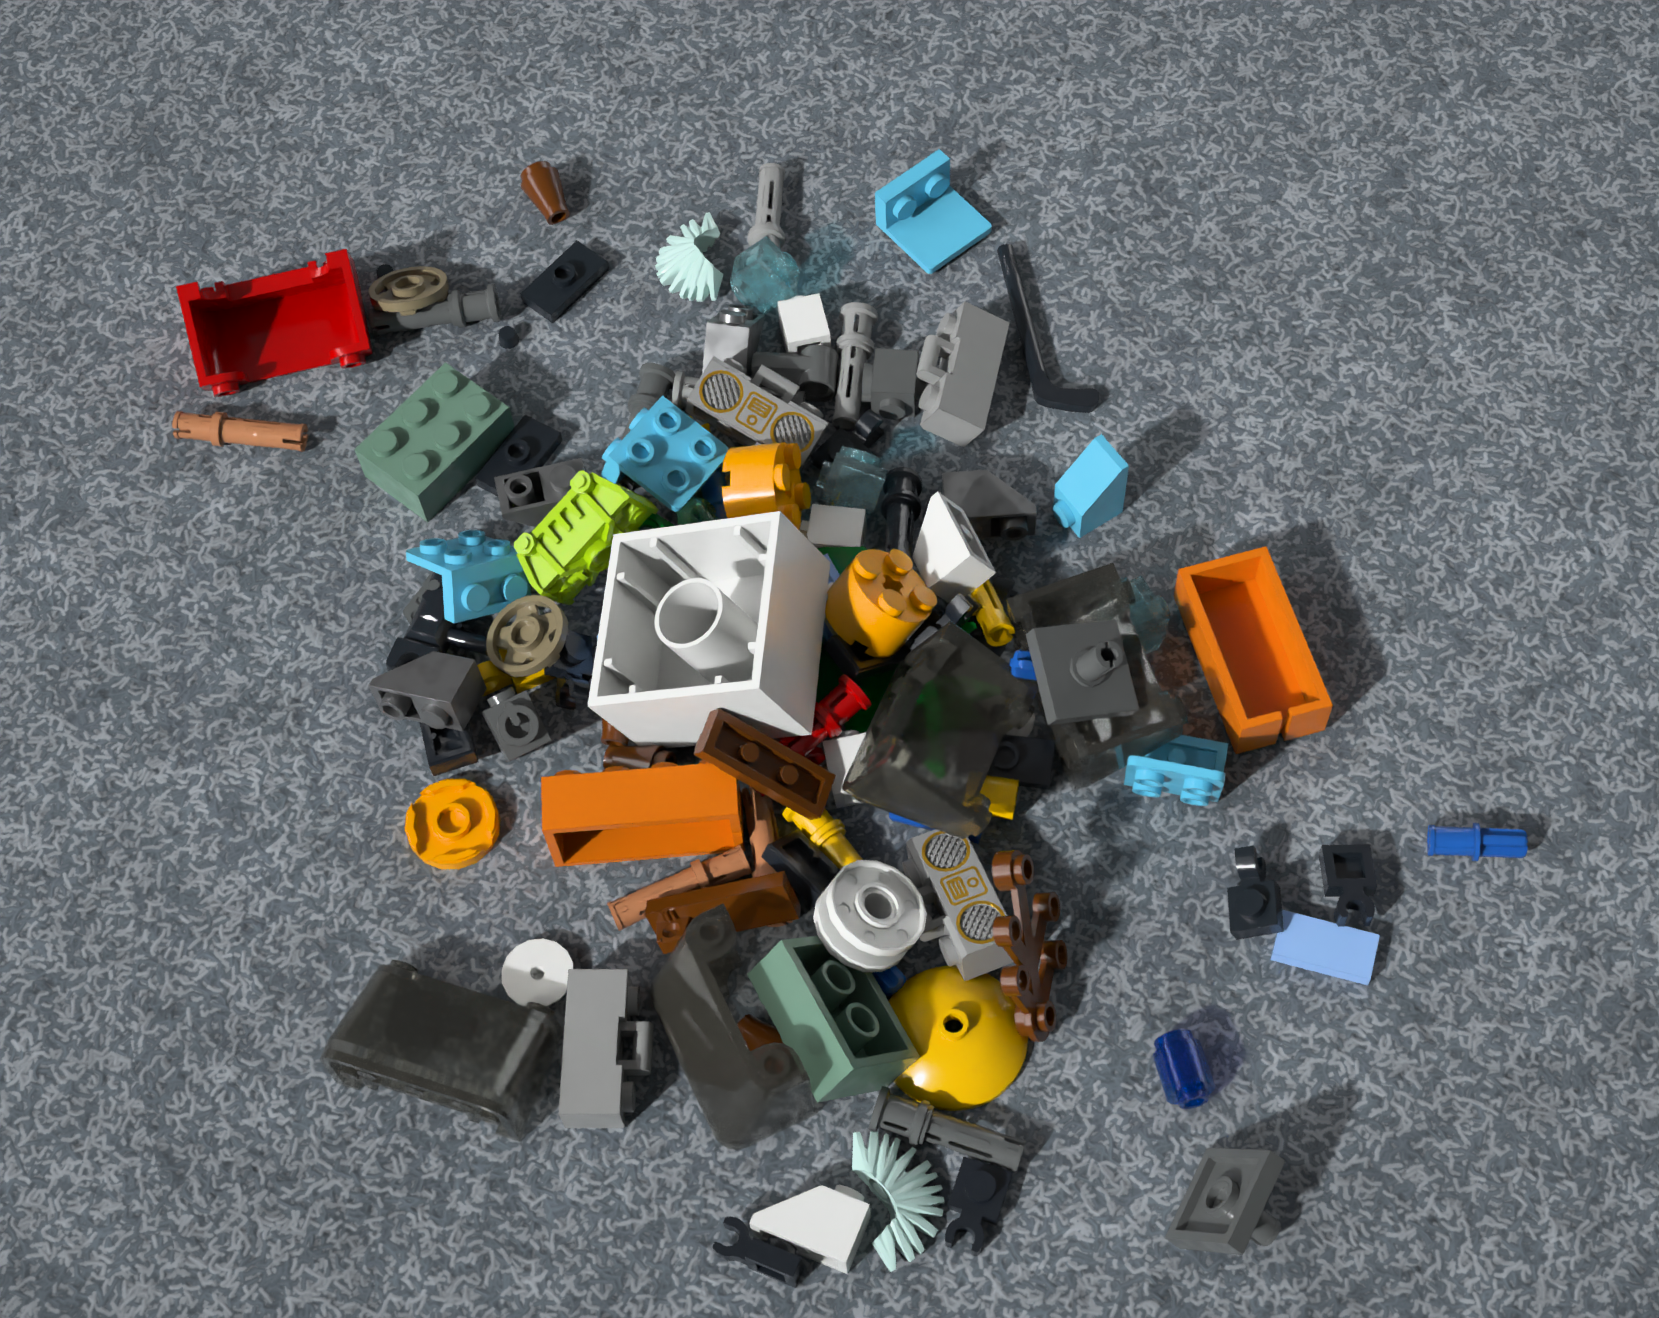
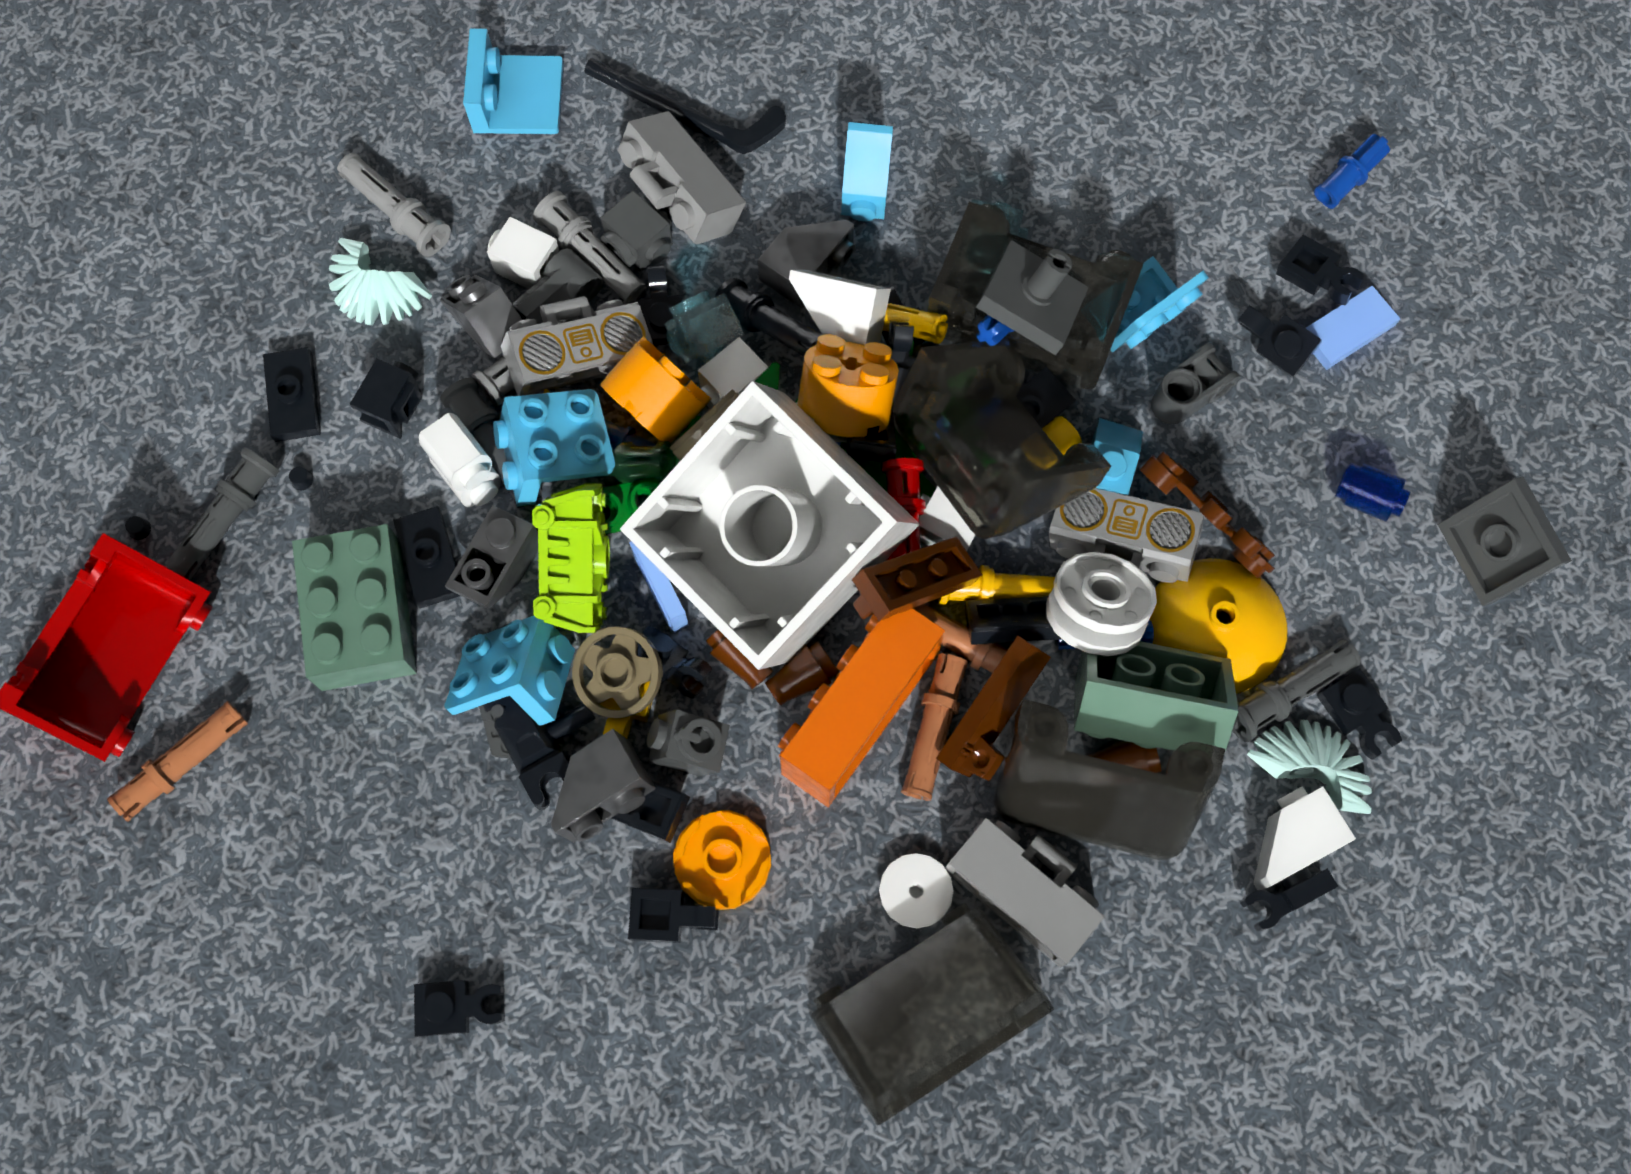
camera: 55 degrees left, 10 degrees up
(201, 732) = (447, 1006): none -> black plate
(375, 813) = (660, 916): none -> black plate
(409, 289) = (179, 518): dark tan wheel -> none
(544, 189) = (188, 341): reddish brown cone -> none
(598, 411) = (460, 460): none -> white brick
(613, 336) = (388, 396): none -> black window
(764, 276) = (451, 242): clear light blue brick -> none
(1030, 834) = (1122, 450): none -> medium azure slope
(1150, 861) = (1198, 381): none -> dark grey piece
(1252, 650) = (1093, 179): orange piece -> none

